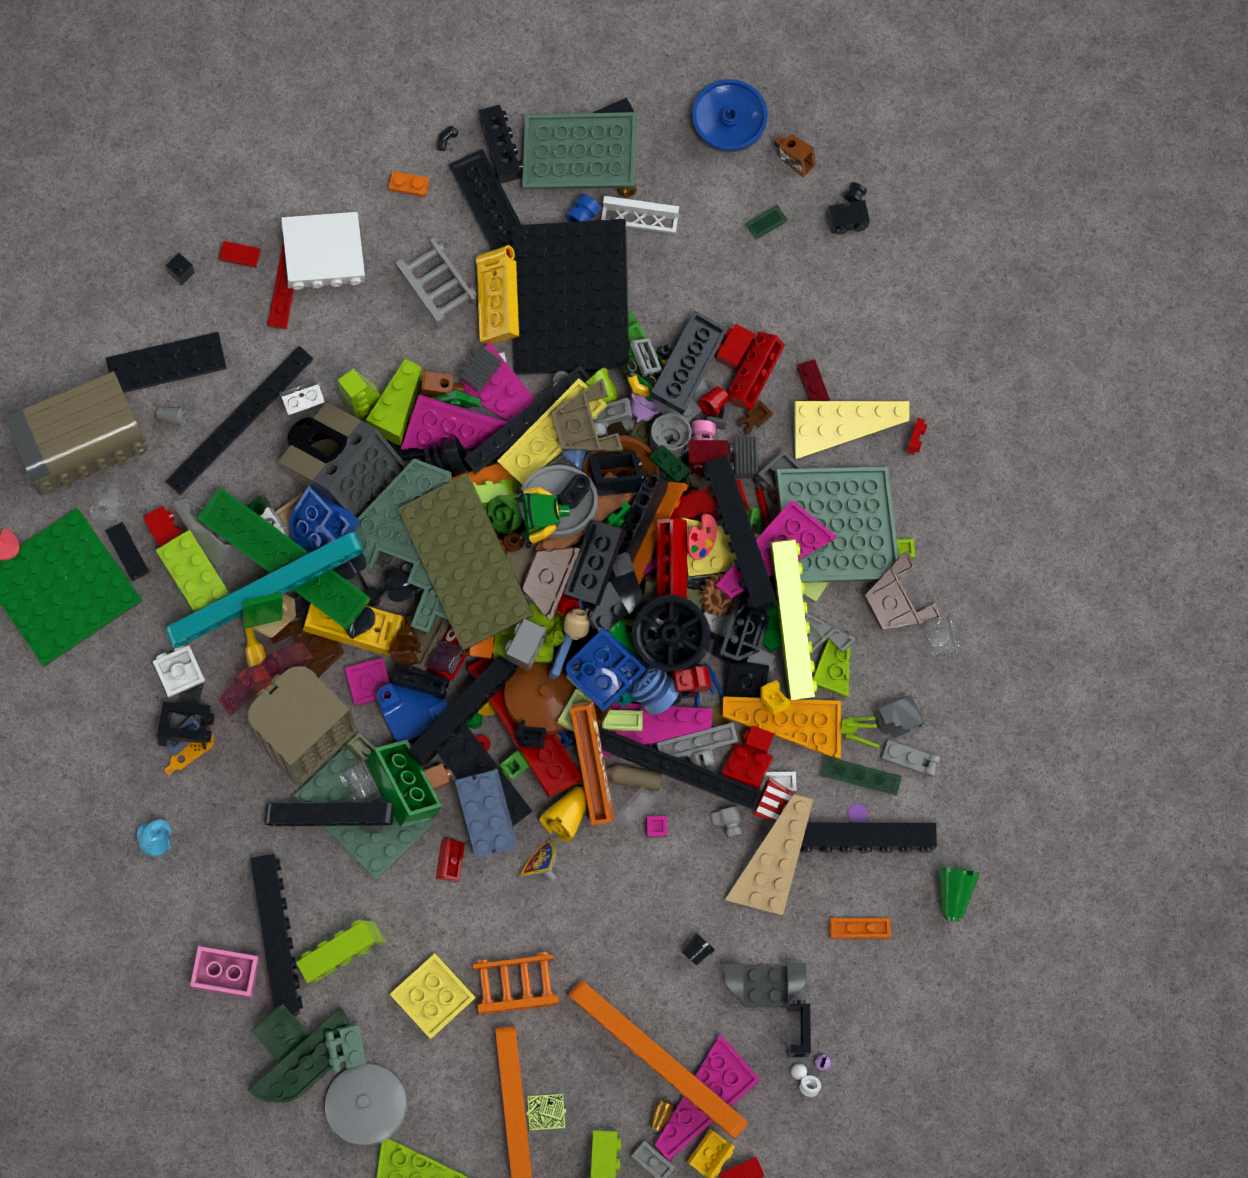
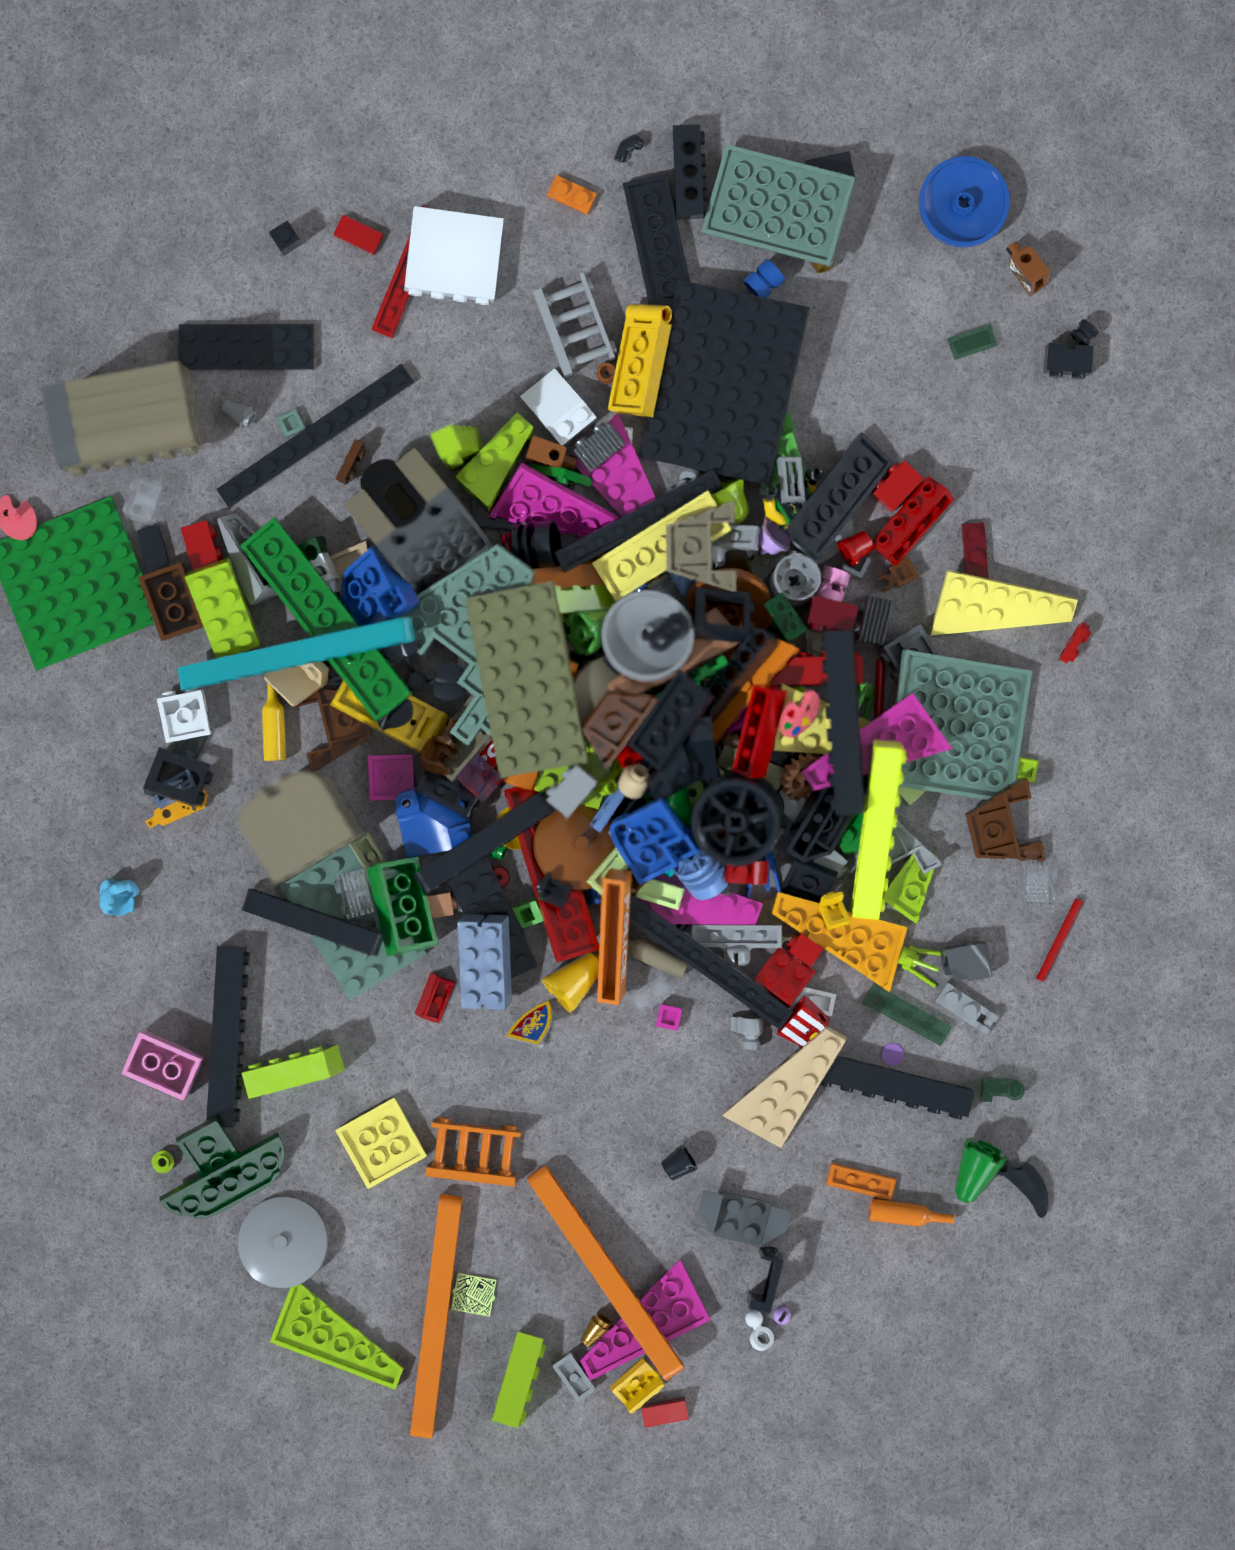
camera: 15 degrees right, 15 degrees up
(149, 578) = (171, 601): none -> reddish brown brick
(217, 414) = (291, 423): none -> sand green tile
(243, 1067) = (169, 1159): none -> lime plate
(260, 676) = (278, 746): clear pink arch -> none
(262, 610) = (288, 675): green tile -> none
(273, 440) = (347, 469): none -> reddish brown plate
(307, 397) = (389, 435): window -> none
(351, 1047) = (281, 1177): sand green plate -> none
(439, 350) = (558, 408): none -> white slope
(467, 314) = (602, 368): none -> dark orange plate
(513, 547) = (582, 677): reddish brown plate -> none
(540, 513) = (622, 650): torso -> none
(642, 208) = (832, 291): white fence -> none
(905, 945) = (905, 1213): none -> orange piece
(959, 816) = (1001, 1087): none -> clear green leg
(973, 682) = (1048, 962): none -> red bar
(1007, 894) = (1030, 1184): none -> black piece

